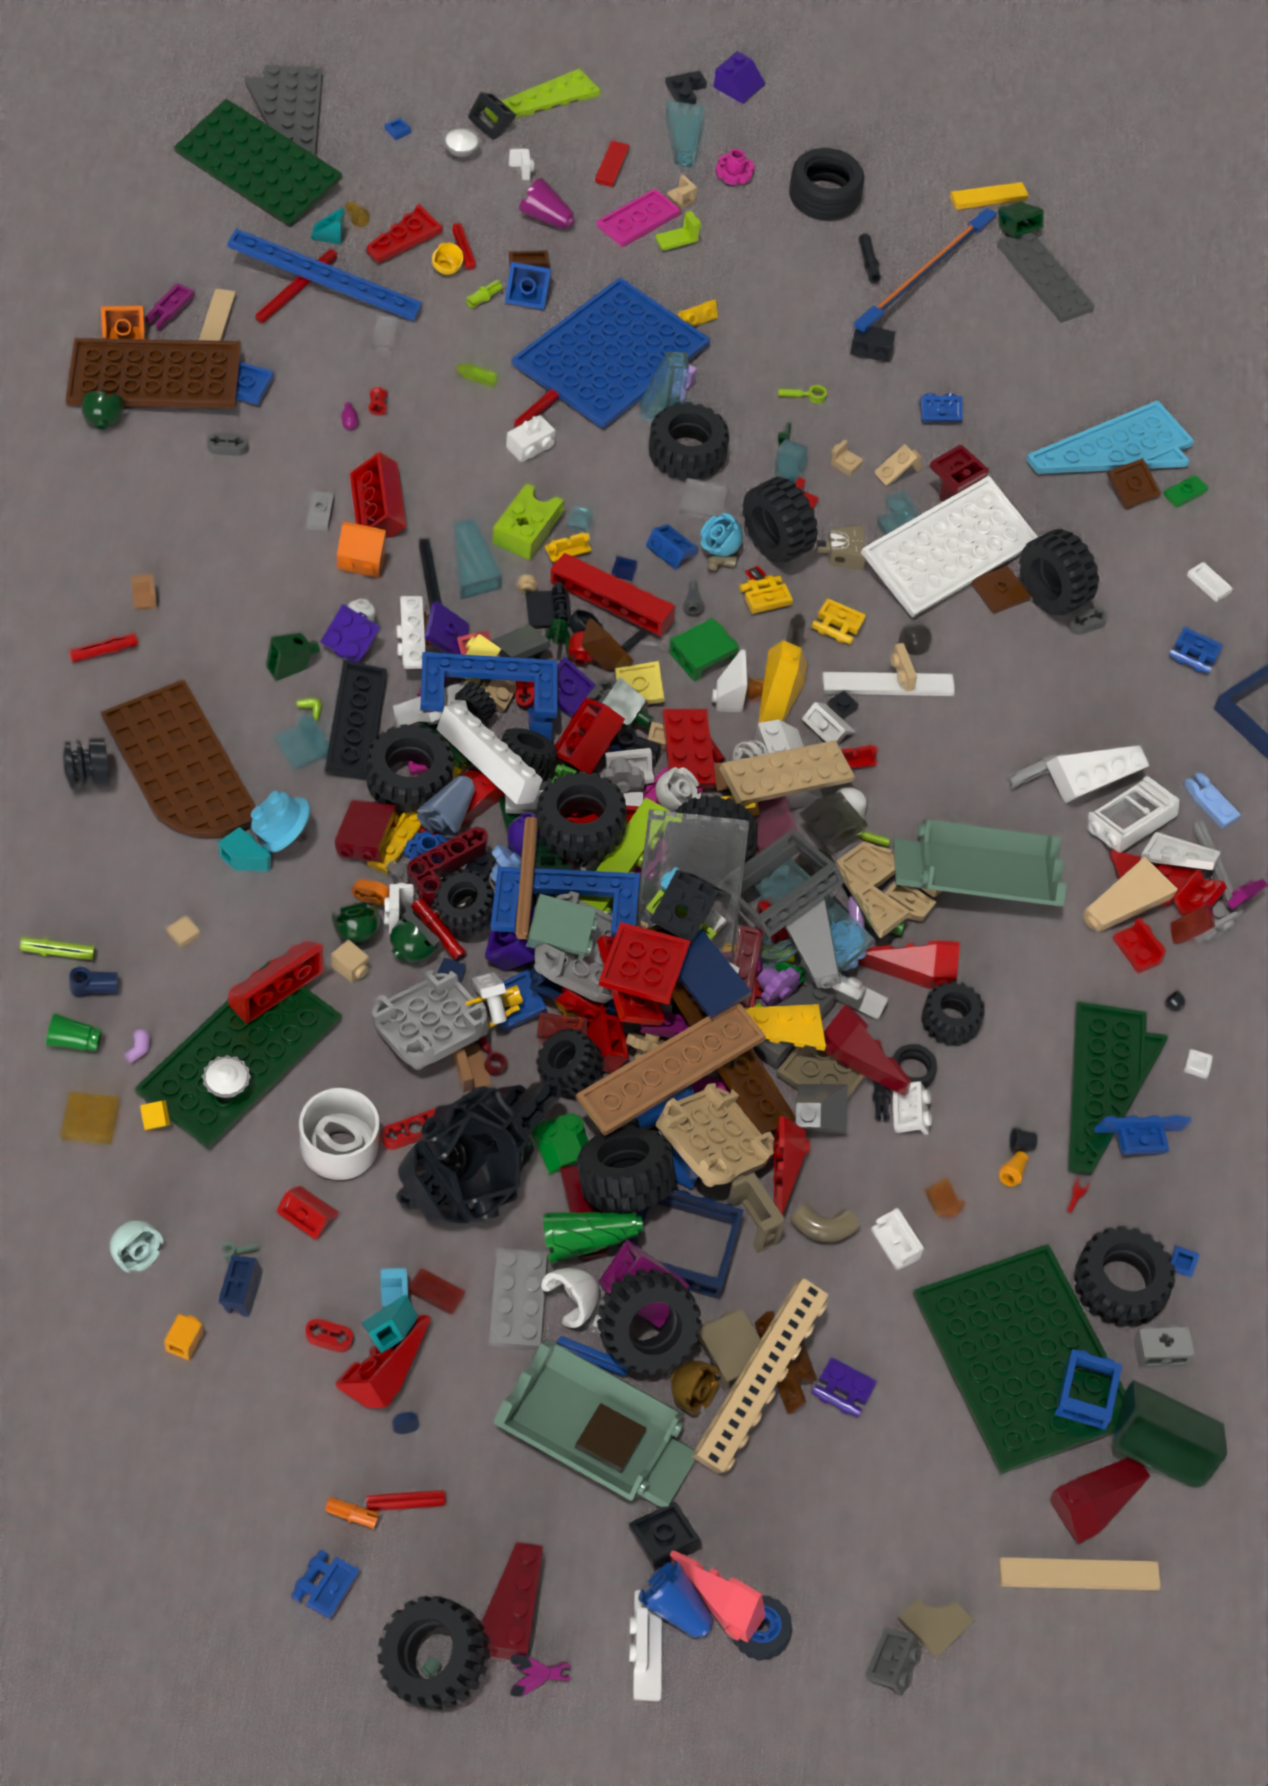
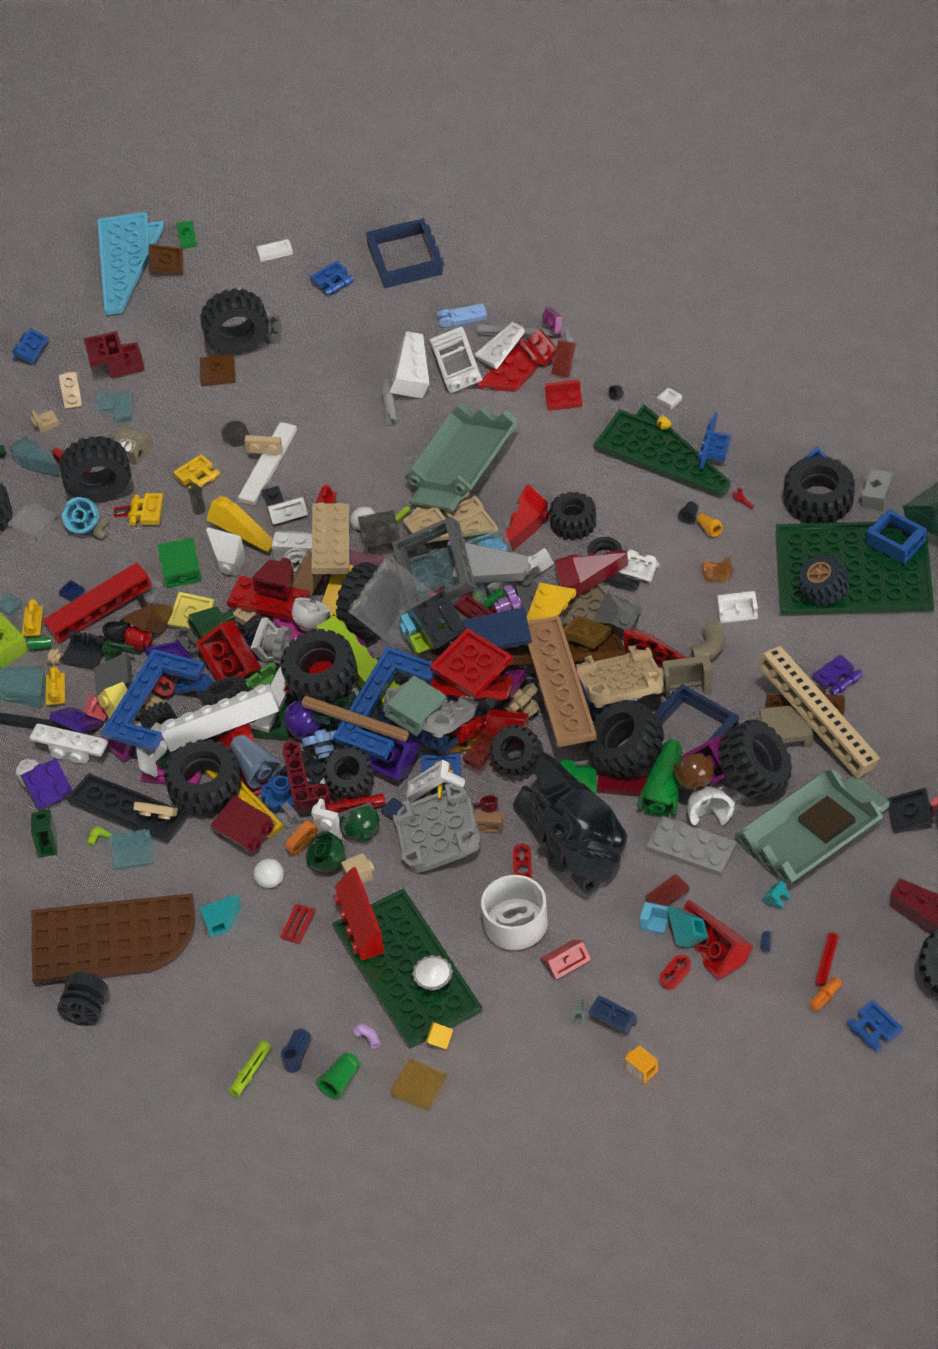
camera: 55 degrees left, 5 degrees down
(135, 1245) = (549, 1076): light aqua cylinder -> none
(183, 931) = (273, 978): tan tile -> none
(263, 927) = (311, 912): none -> red tile
(280, 820) = (210, 876): medium azure piece -> none
(318, 879) = (268, 873): none -> white hair
(353, 741) = (162, 811): none -> tan plate
(479, 1411) = (774, 893): none -> teal tile
(487, 600) = (55, 687): none -> yellow hinge
(537, 560) = (39, 643): none -> green pin
(594, 1257) = (694, 772): none -> reddish brown cylinder
(595, 1356) = (766, 804): blue axle -> none
(670, 545) = (68, 554): blue bracket -> none
(693, 603) = (128, 555): dark grey cone -> none
(694, 1385) = (805, 757): pearl gold cylinder -> none
(709, 740) = (274, 578): none -> dark red torso
(772, 1079) = (586, 632): none -> pearl gold plate
(949, 546) = (166, 383): white plate -> none
(969, 1318) = (822, 579): none -> black wheel
(1132, 894) = (524, 383): tan slope -> none
(1146, 1065) = (663, 422): none -> yellow hinge

